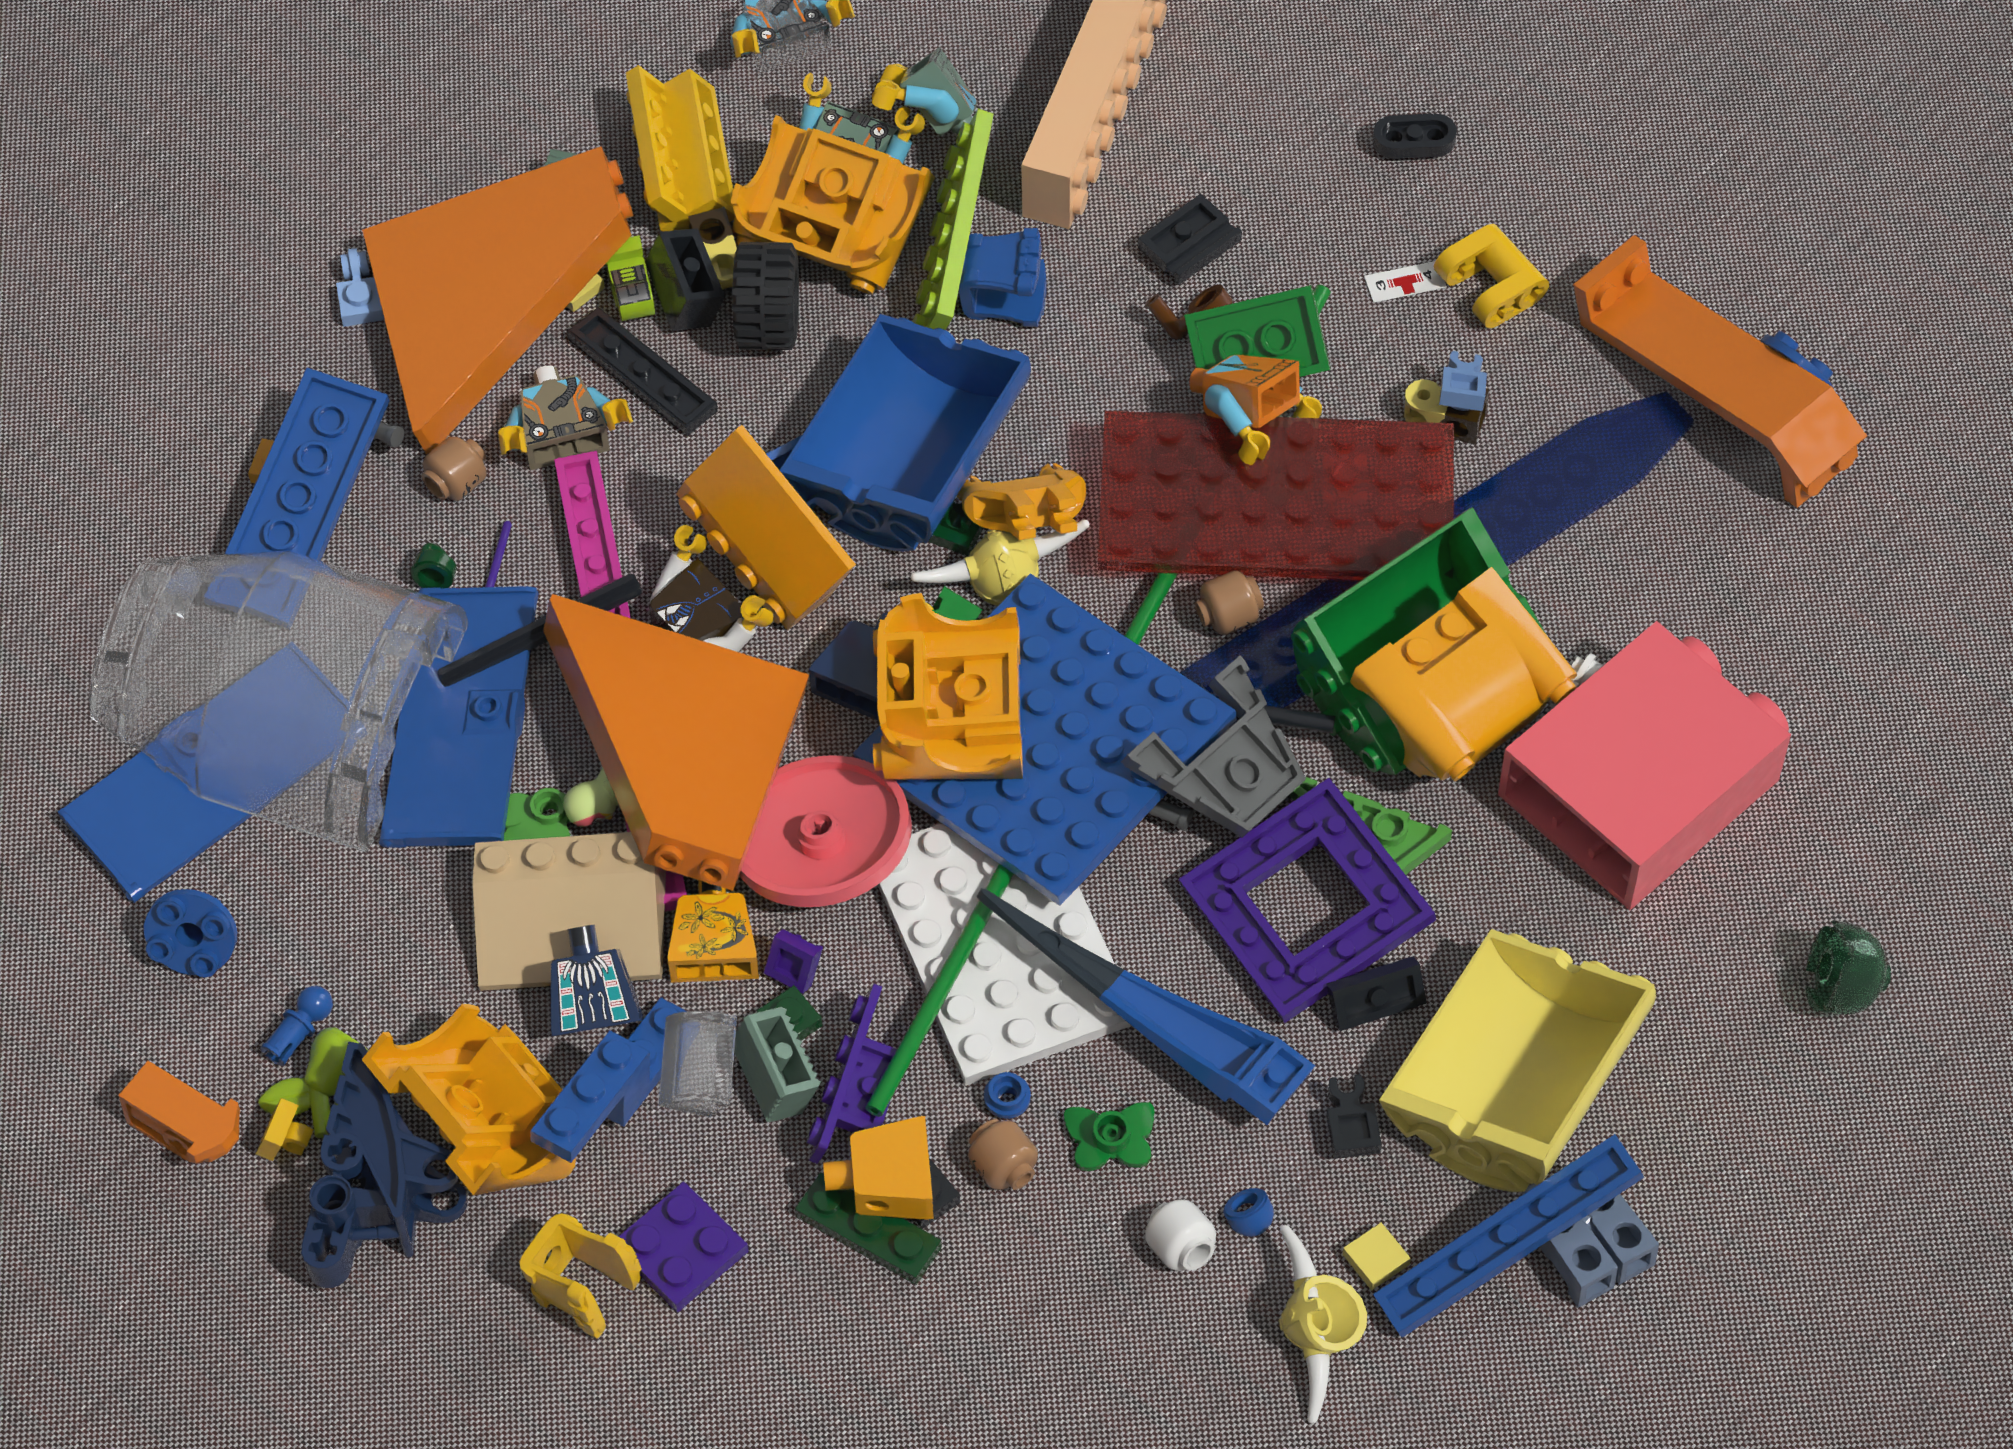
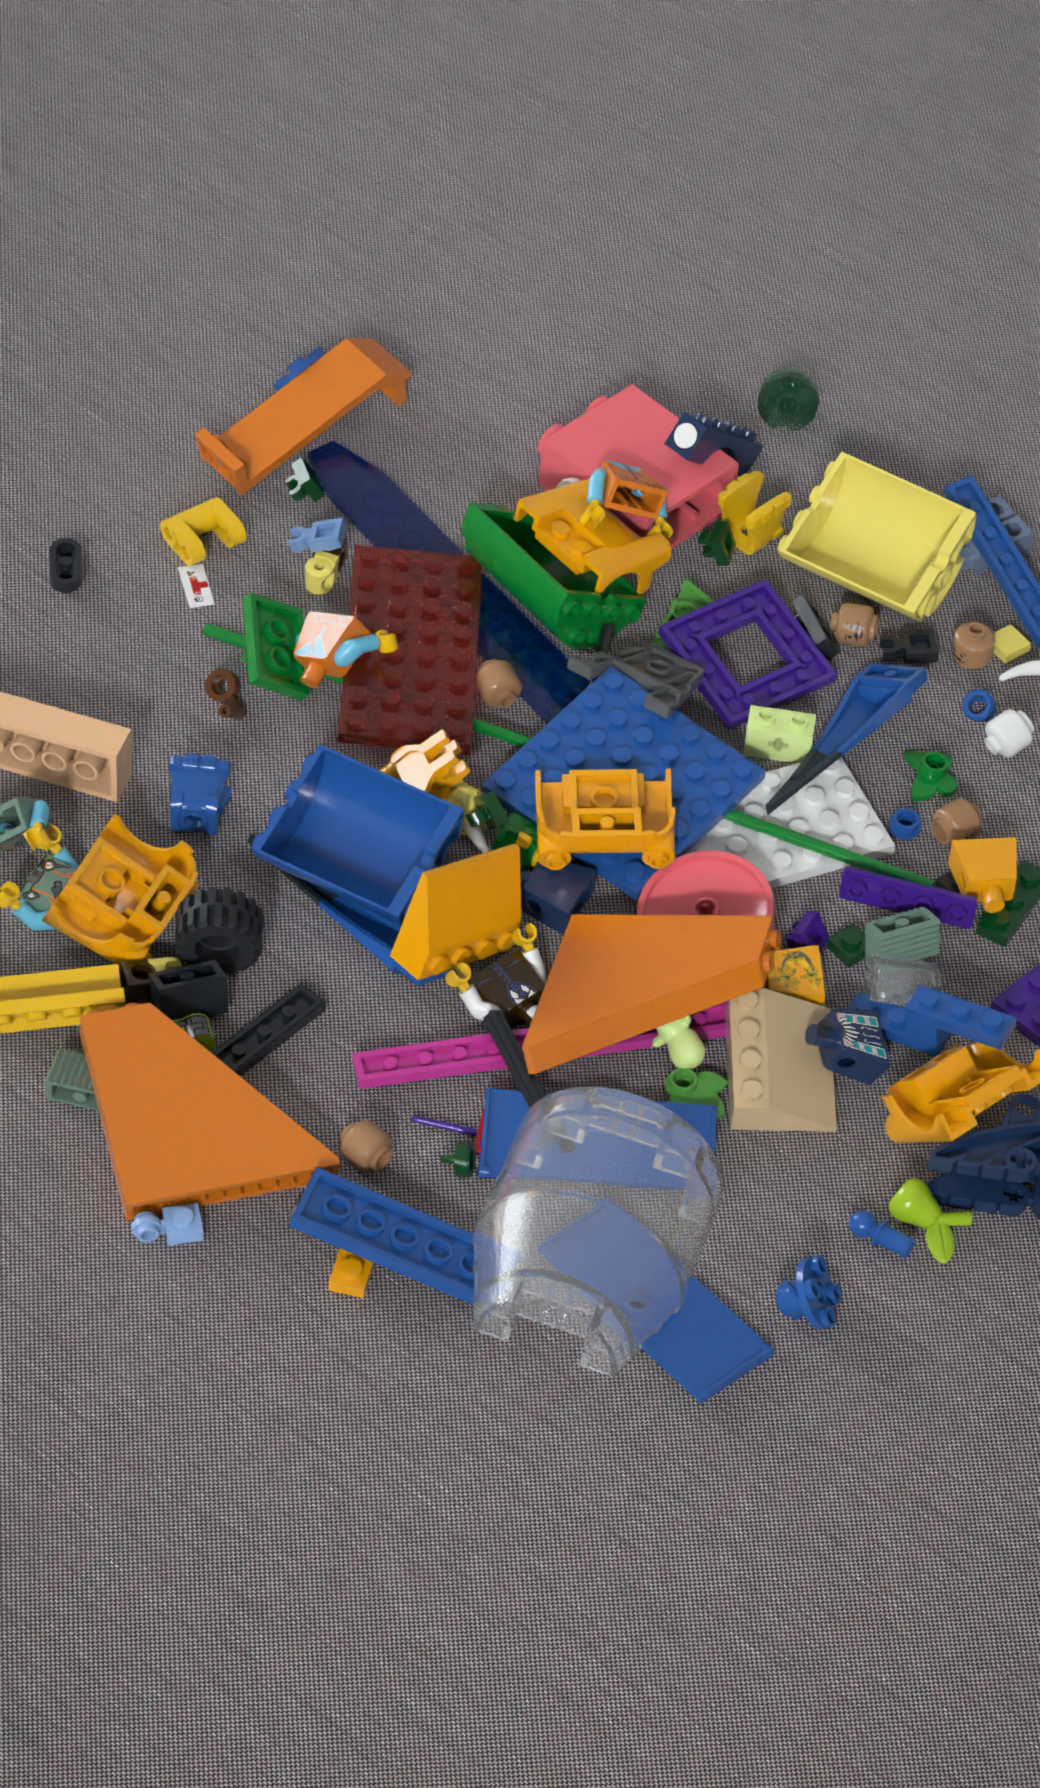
camera: 95 degrees left, 10 degrees down
(179, 1115) = (974, 1294): orange piece -> none
(283, 1132) = (975, 1238): yellow tile -> none
(560, 419) = (320, 1075): torso -> none
(953, 223) = (212, 826): lime plate -> none
(965, 570) = (488, 811): none -> dark green tile
(1157, 933) = (779, 734): none -> yellowish green brick
(1189, 239) = (156, 696): black plate -> none
(1349, 1195) = (973, 645): none -> medium nougat head
(1380, 1042) = (855, 624): none -> medium nougat head
(1523, 697) = (629, 491): none -> torso
(1533, 878) = (720, 543): none -> dark green tile
(1588, 912) = (738, 508): none -> yellow piece
(1601, 386) = (304, 482): none -> dark green tile
(1664, 802) = (700, 436): none -> dark blue arch

